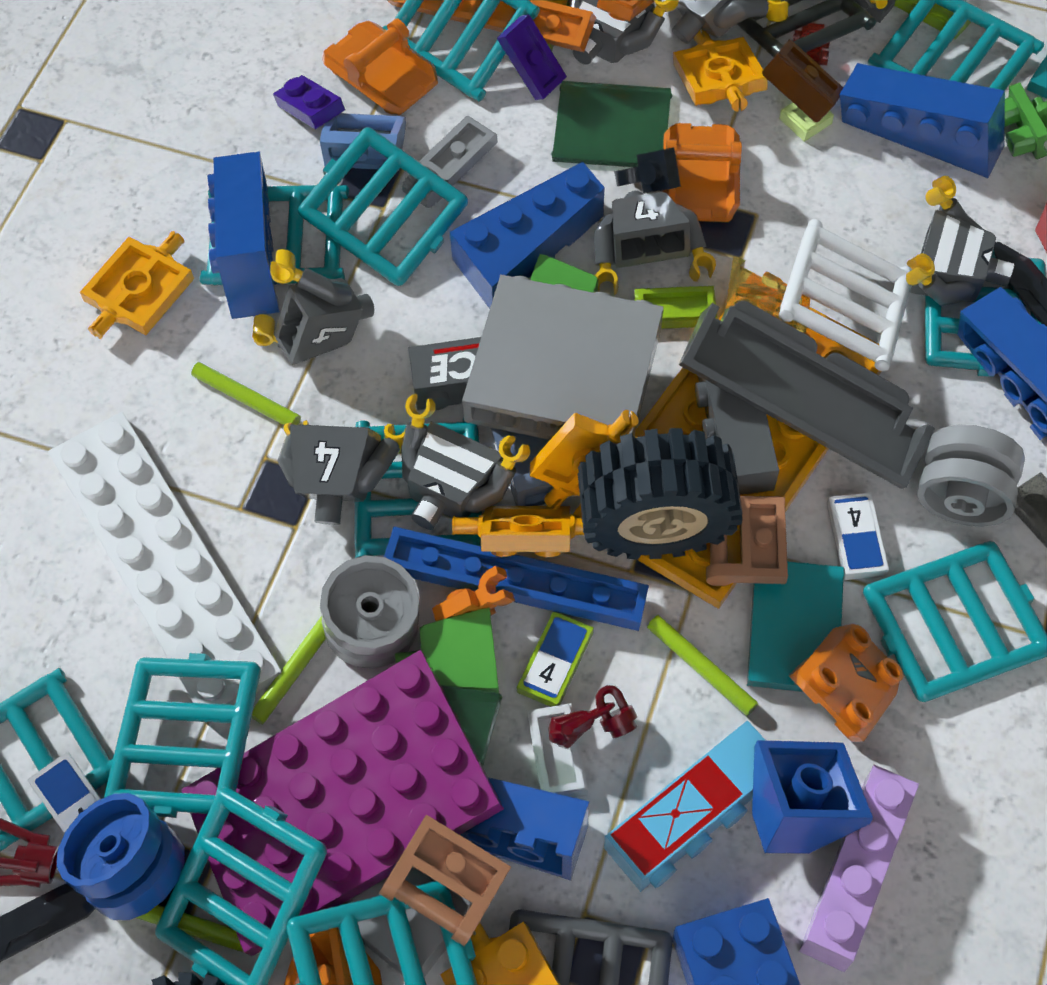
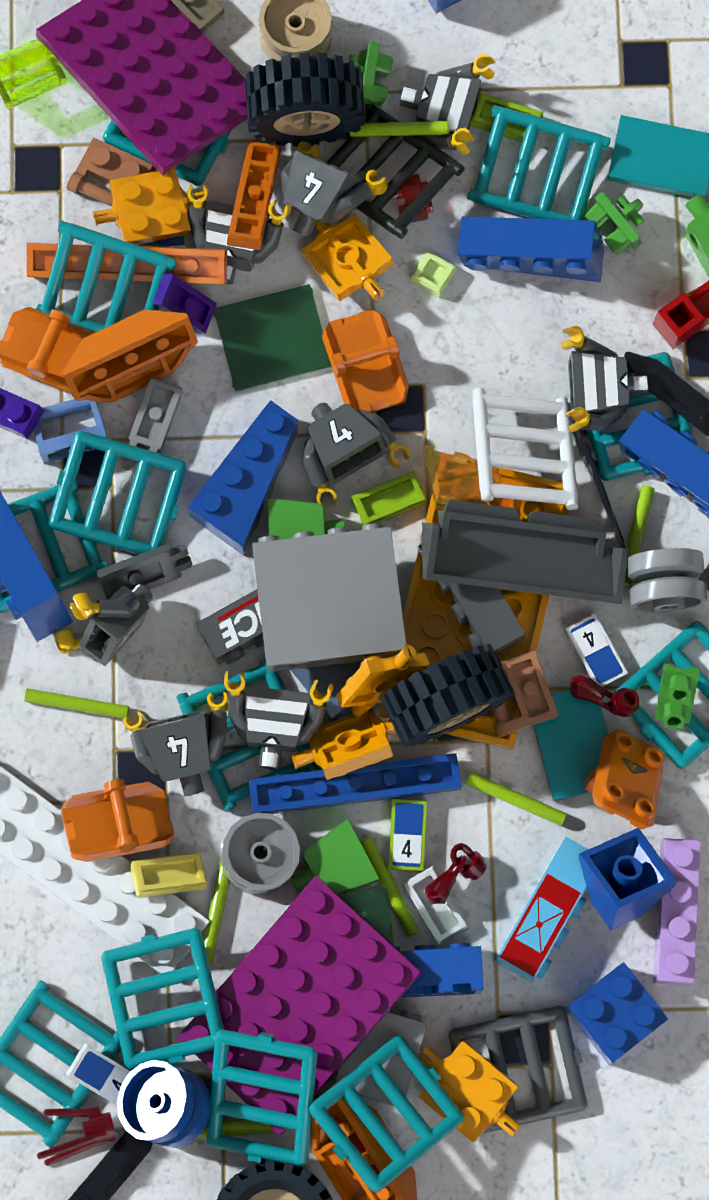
camera: 25 degrees left, 15 degrees up
(227, 520) = (116, 821): none -> orange shield
(257, 601) = (168, 875): none -> light yellow tile
(387, 286) = (148, 569): none -> dark grey hinge
(446, 84) = (128, 355): none -> orange wedge
(453, 864) = (403, 1025): nougat plate -> none
(466, 600) = (327, 820): orange plate -> none
(510, 712) = (394, 895): none -> lime bar
(655, 171) = (330, 383): black plate -> none
(803, 81) = (423, 251): reddish brown slope -> none
(873, 595) = (621, 703): none -> dark red piece
(919, 335) = (590, 459): none -> black piece
(943, 602) = (676, 695): none -> bright green hips
(956, 416) = (639, 524): none -> lime bar

